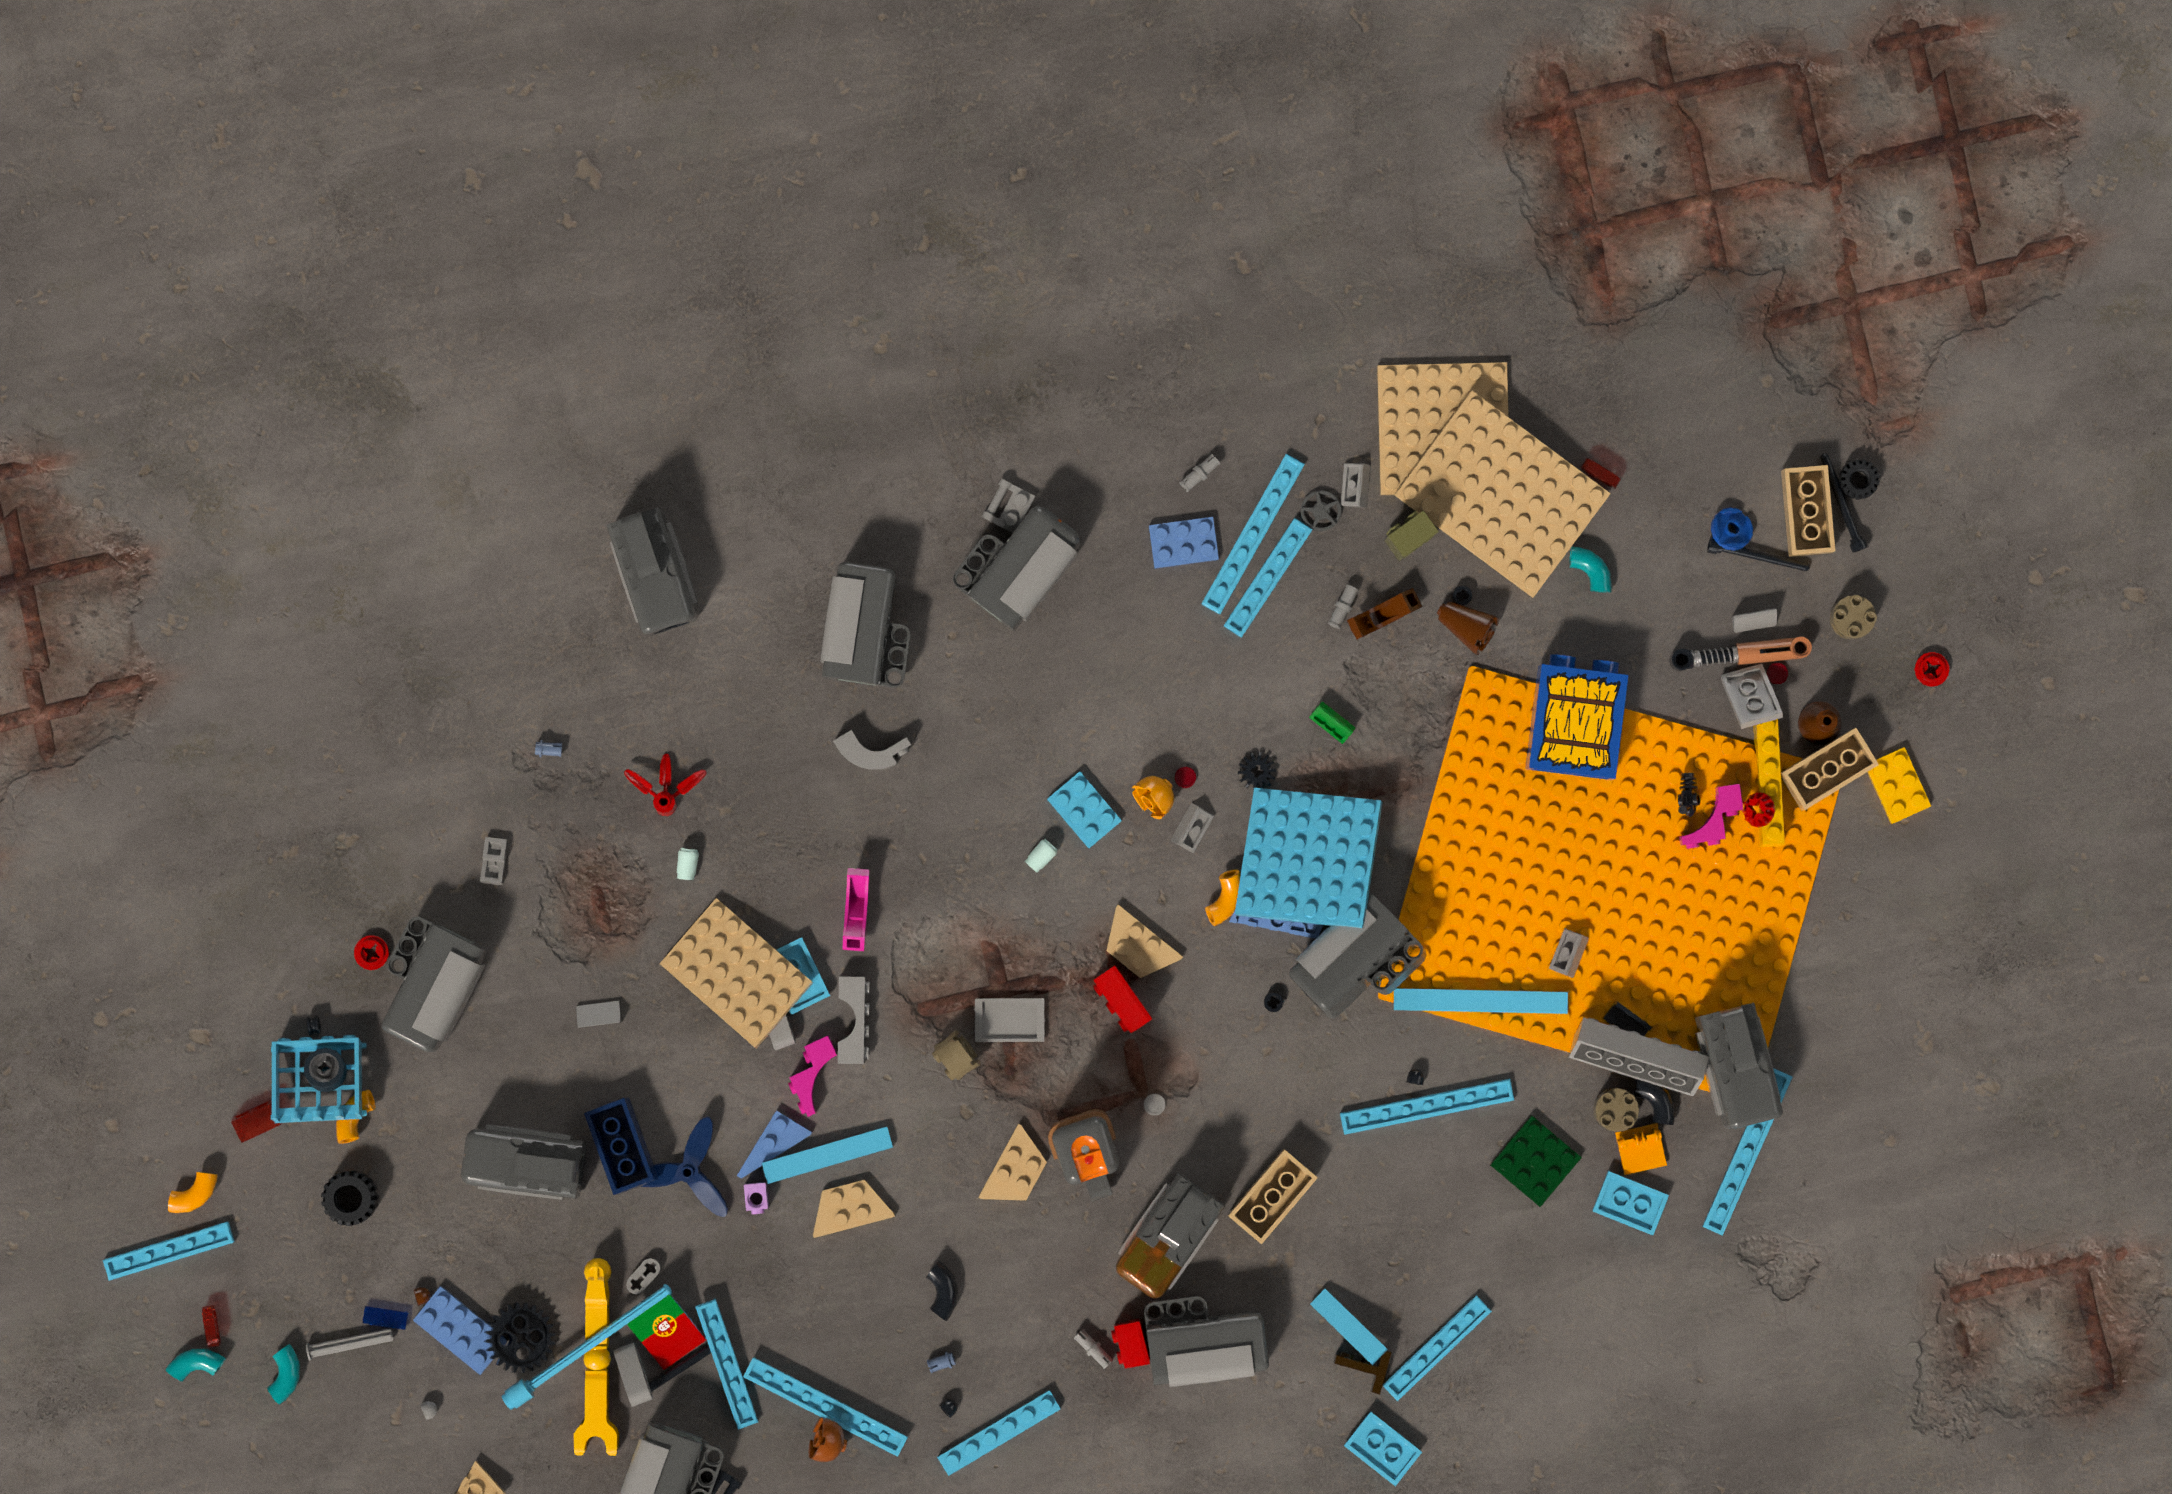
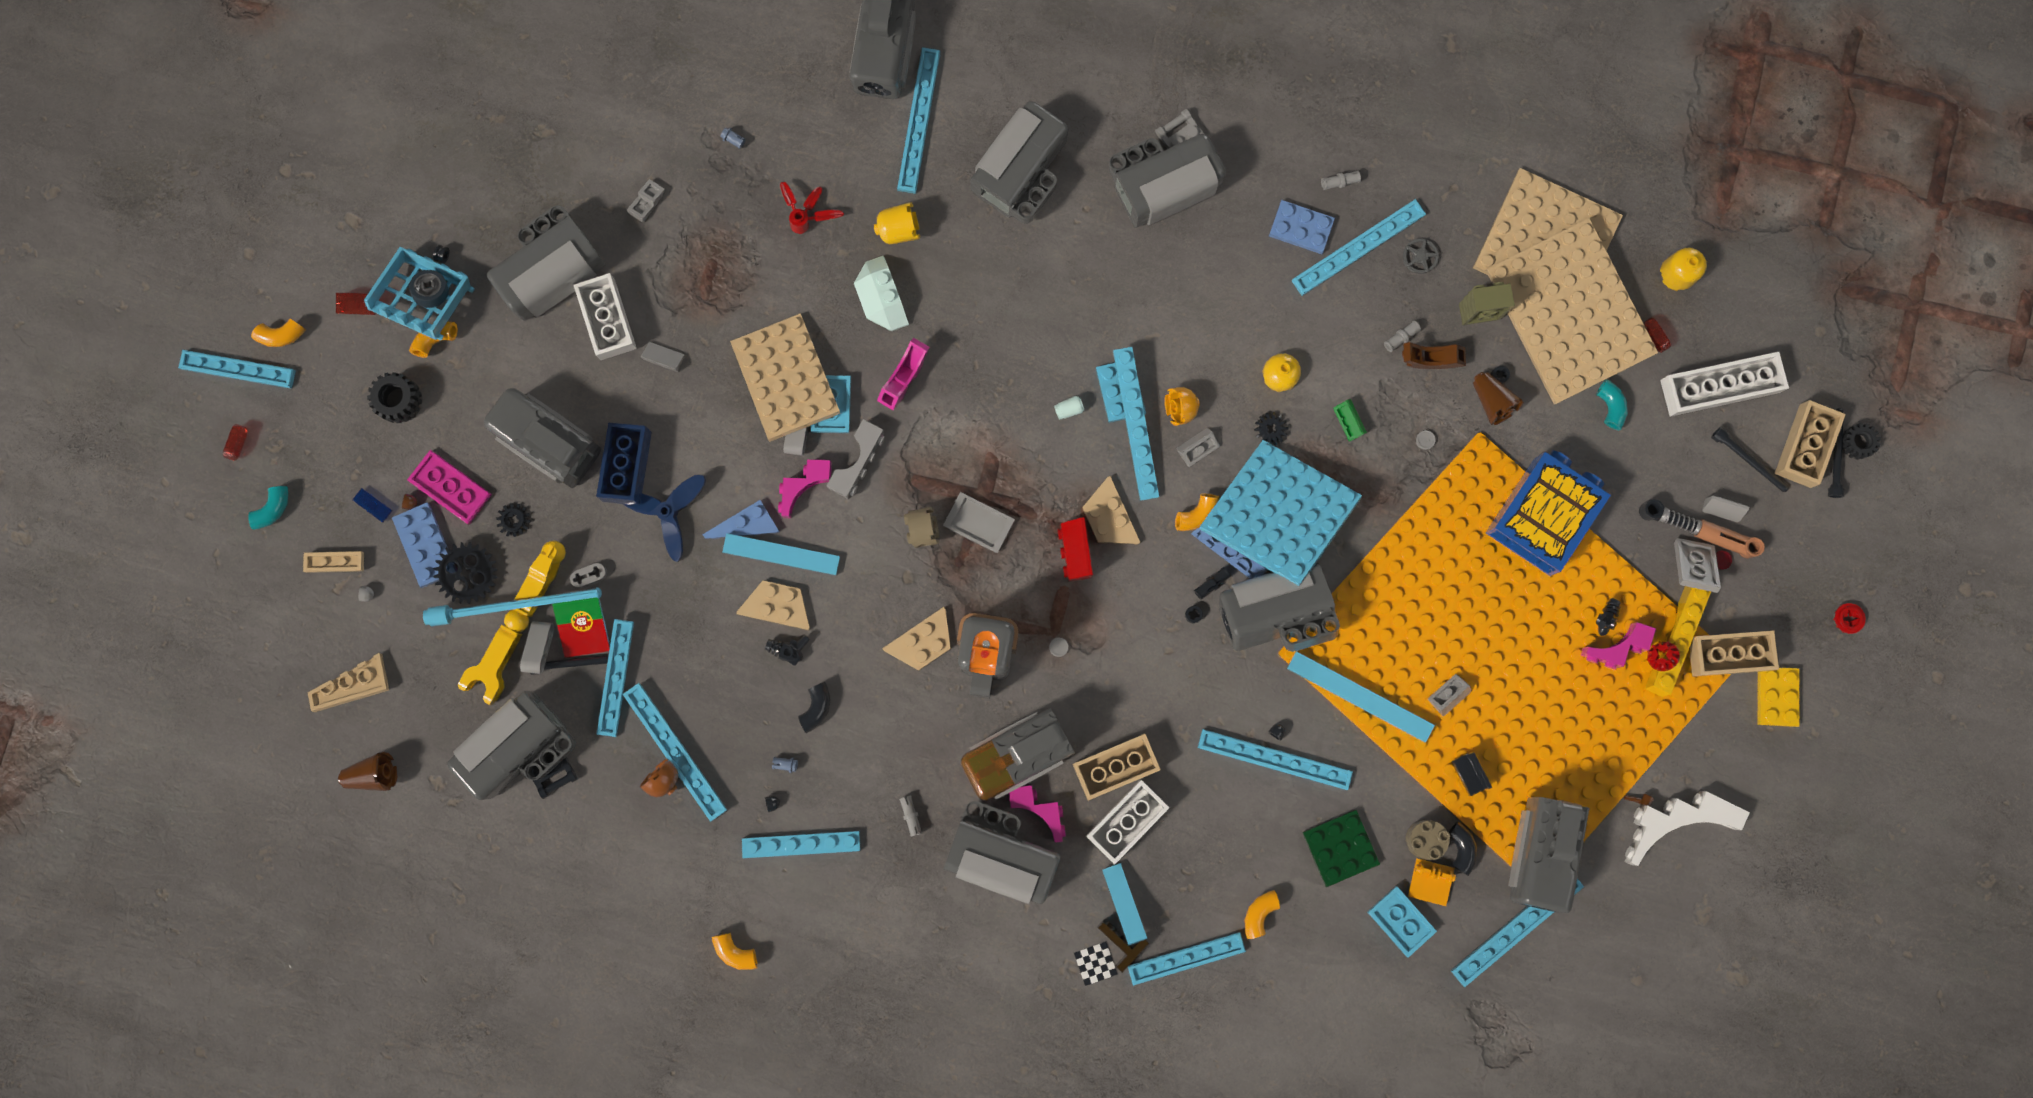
camera: 30 degrees right, 5 degrees down
(195, 1360) = (207, 461): teal cylinder -> none
(349, 1343) = (332, 510): light grey axle -> none
(361, 955) = (506, 221): red gear -> none
(378, 1394) = (333, 562): none -> tan plate
(453, 1259) = (449, 487): none -> dark pink tile
(519, 1005) = (605, 316): none -> white brick
(529, 1253) = (506, 524): none -> black gear
(687, 863) = (792, 276): light aqua piece -> none
(730, 630) = (918, 120): none -> medium azure tile
(751, 1188) = (708, 550): lavender brick -> none
(768, 756) = (897, 224): none -> yellow cylinder
(786, 836) = (880, 295): none -> light aqua wedge
(873, 760) = (974, 267): light grey arch -> none
(886, 1249) = (787, 652): none -> black piece
(1117, 838) = (1136, 423): none -> medium azure plate
(1131, 1344) = (943, 827): red slope -> none
(1185, 777) = (1212, 405): dark red piece -> none
(1229, 1274) = (1024, 798): none -> dark pink arch
(1238, 707) = (1281, 372): none -> yellow cylinder
(1268, 577) = (1354, 286): medium azure tile -> none
(1276, 961) = (1212, 583): none -> black pin
(1310, 1244) = (1127, 821): none -> white brick
(1350, 1399) = (1095, 963): none -> sticker
(1355, 485) = (1457, 250): light grey slope -> none
(1382, 1448) = (1102, 1018): medium azure plate -> none
(1419, 702) = (1425, 440): none -> light grey piece
(1484, 1267) = (1257, 913): none -> light orange cylinder
(1594, 391) = (1683, 269): none -> yellow cylinder
(1638, 1056) = (1469, 805): light grey brick -> none
(1692, 492) = (1724, 384): none -> white brick
(1724, 537) = (1732, 428): blue tile -> none
(1812, 726) = (1740, 614): reddish brown cone -> none
(1814, 959) = (1646, 799): none -> reddish brown hand
(1851, 956) = (1678, 813): none -> white arch
(1852, 617) = (1806, 545): dark tan brick -> none

